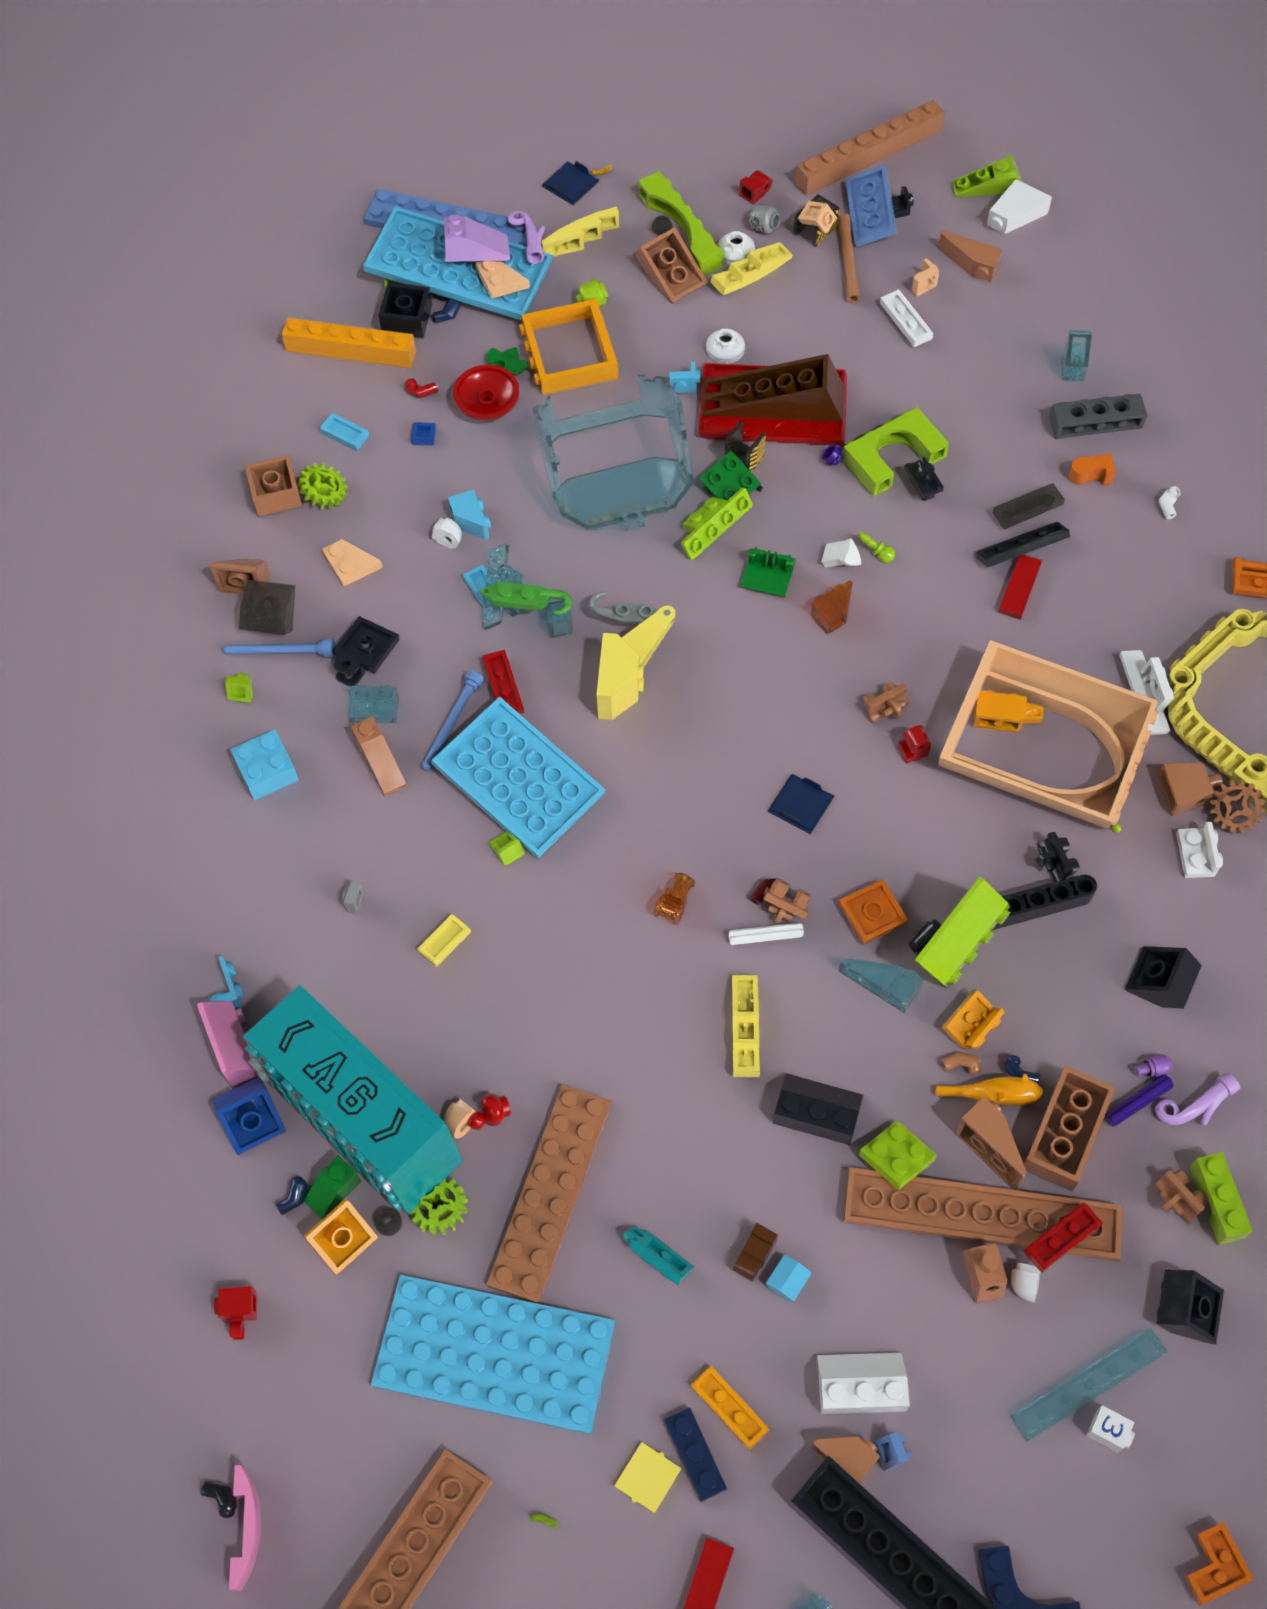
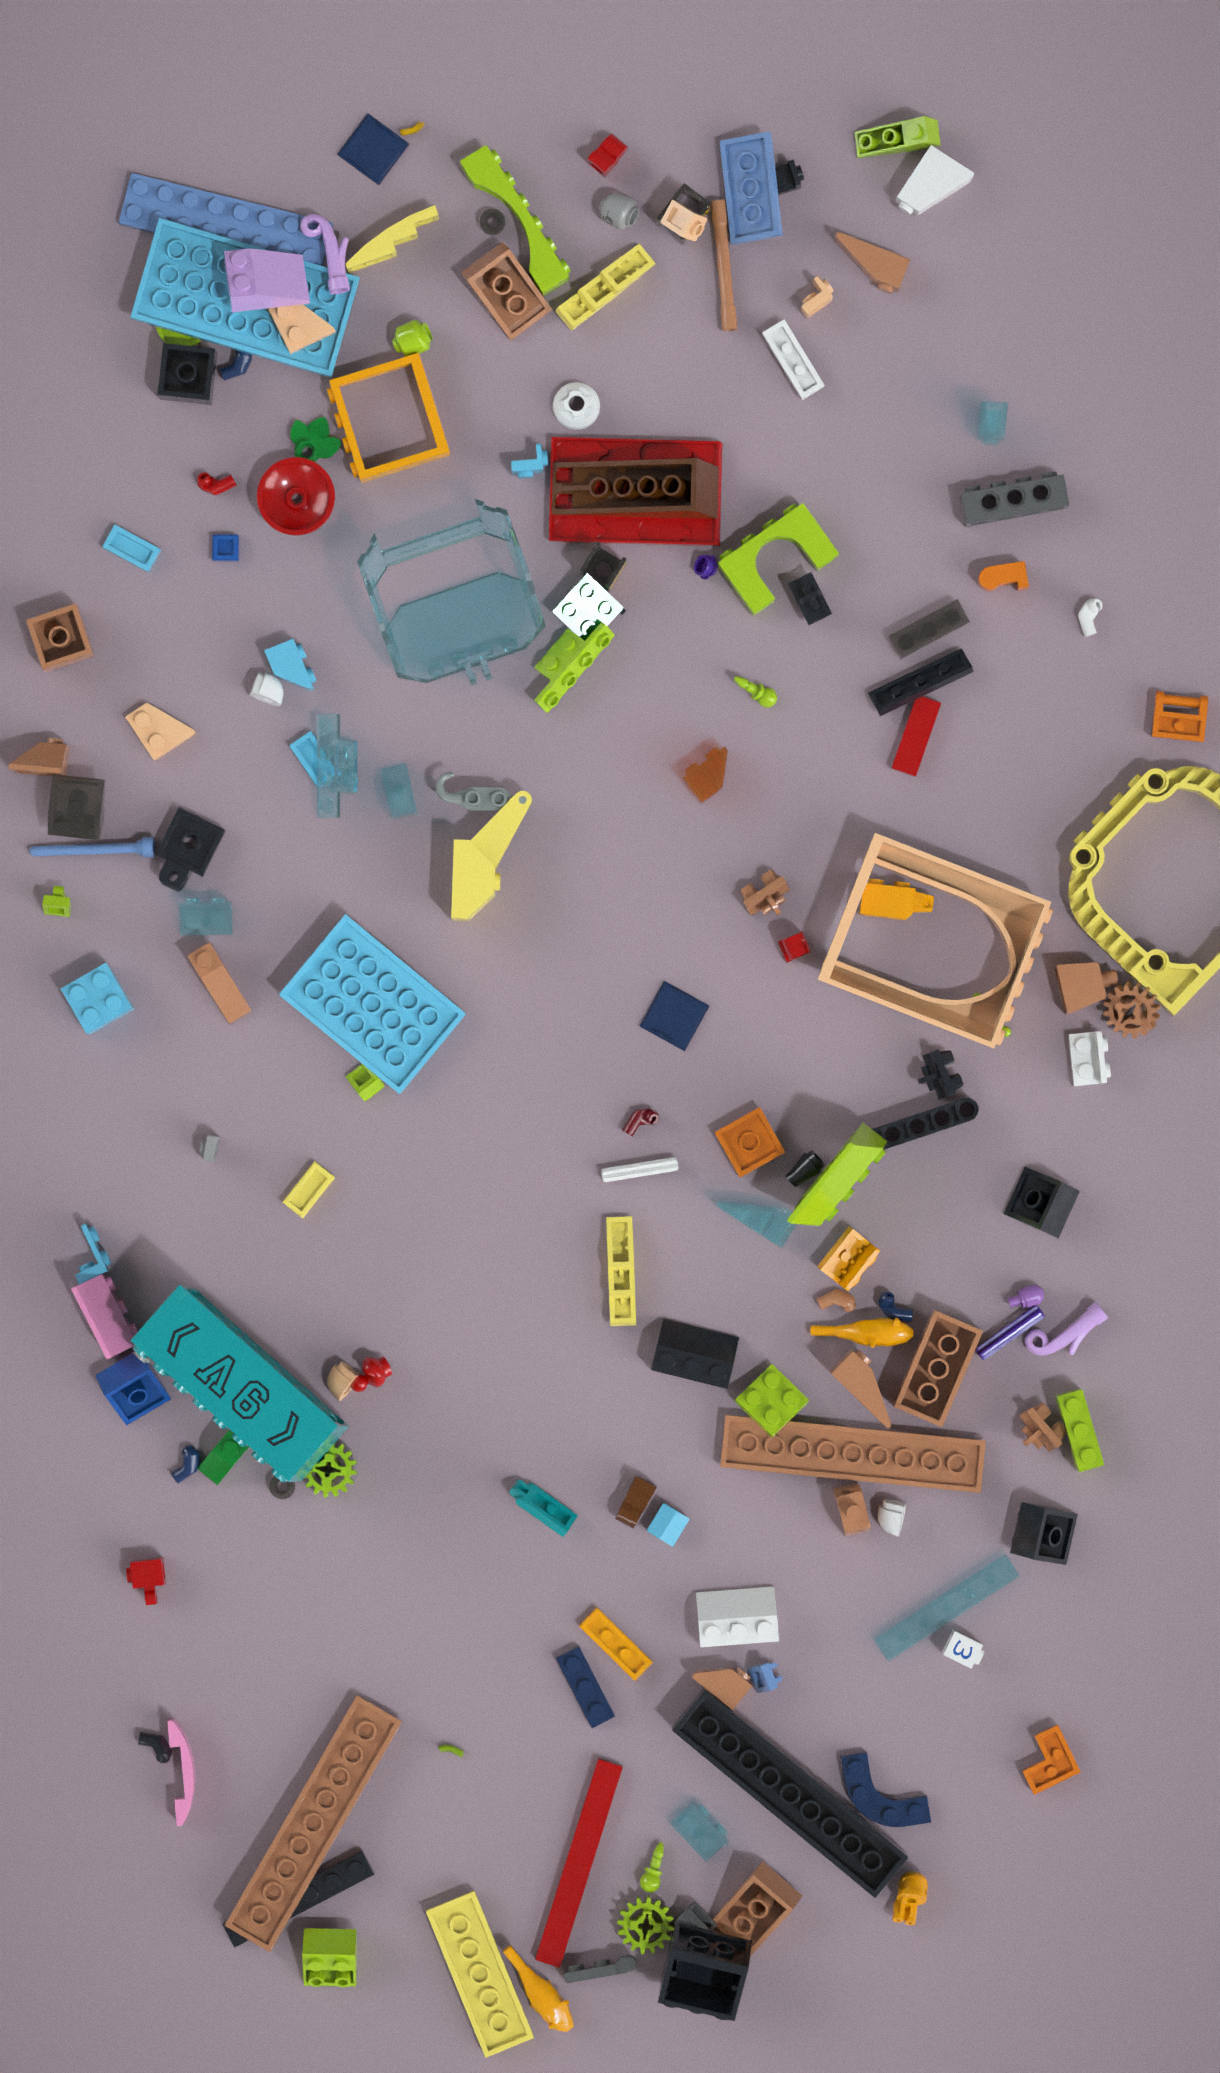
camera: 10 degrees left, 25 degrees up
(322, 485) = (125, 640): lime gear -> none
(340, 1236) = (239, 1505): light orange slope -> none
(349, 342) = (123, 423): light orange brick -> none
(472, 682) = (312, 886): medium blue piece -> none
(494, 1354) = (394, 1605): medium azure plate -> none
(502, 679) = (346, 884): red plate -> none
(525, 596) = (365, 788): bright green plate -> none
(549, 1194) = (436, 1449): nougat plate -> none
(648, 1477) = (543, 1708): light yellow piece -> none
(674, 900) = (543, 1138): clear orange connector -> none
(736, 252) = (585, 266): white piece -> none
(768, 572) = (633, 728): green hinge -> none
(777, 896) = (658, 1140): nougat hips -> none
(841, 554) = (715, 704): white tile -> none
(869, 147) = (750, 89): nougat brick -> none
(1062, 1237) = (926, 1477): red tile -> none
(1151, 681) = (1047, 865): white bracket -> none

